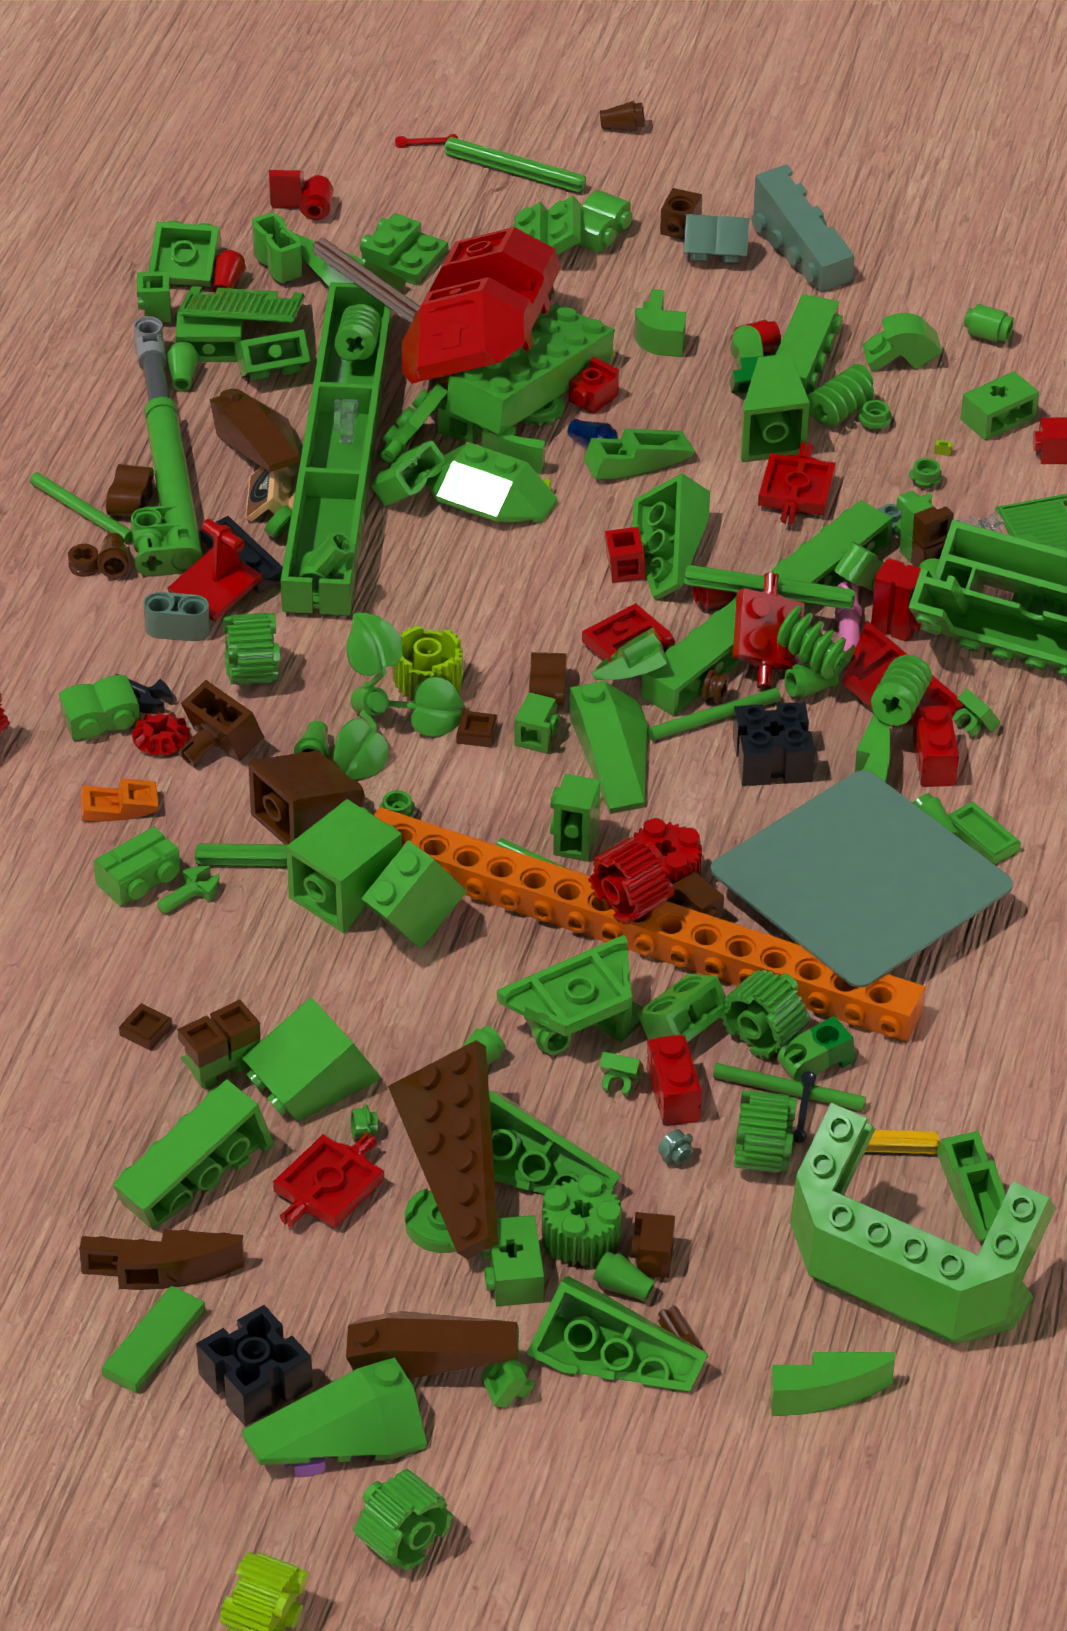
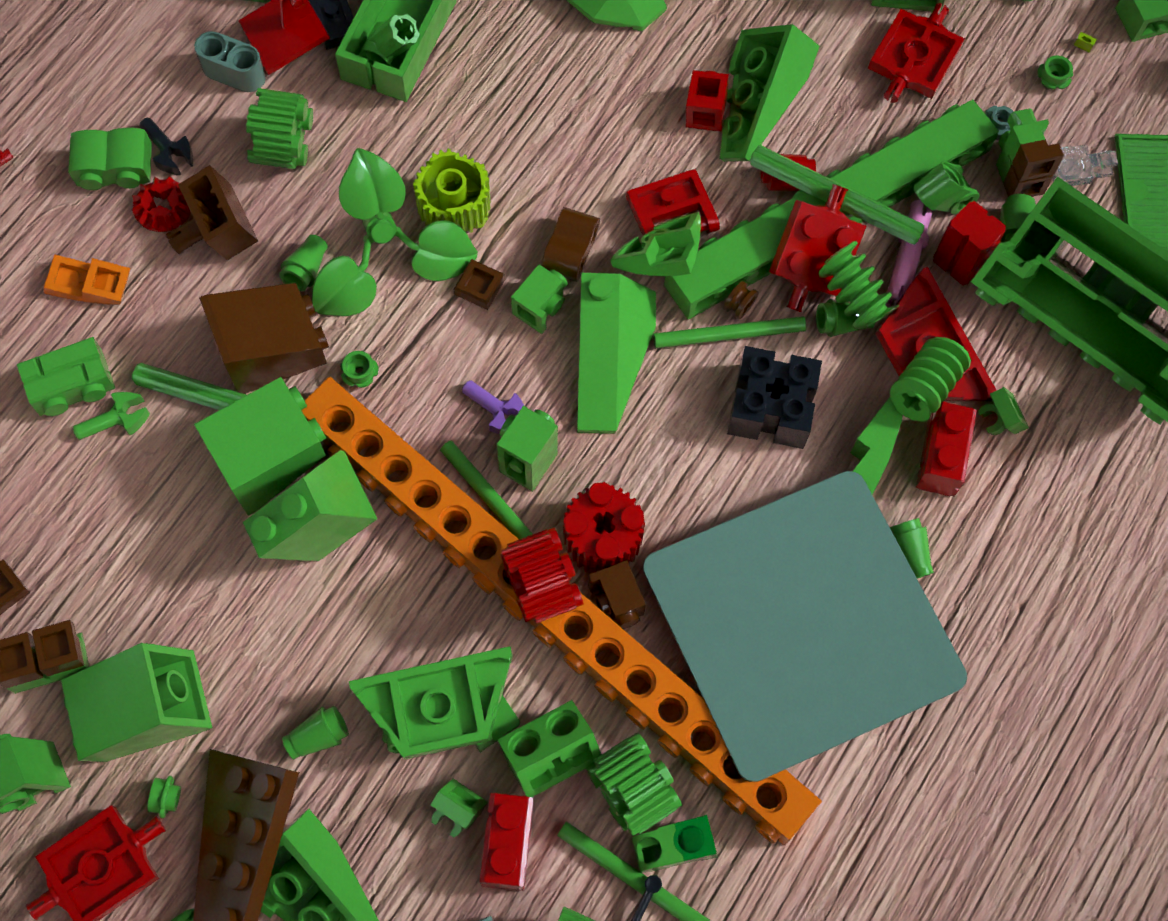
camera: 15 degrees right, 25 degrees up
(540, 811) = (492, 404): none -> medium lavender bar
(984, 833) = (960, 576): bright green tile -> none

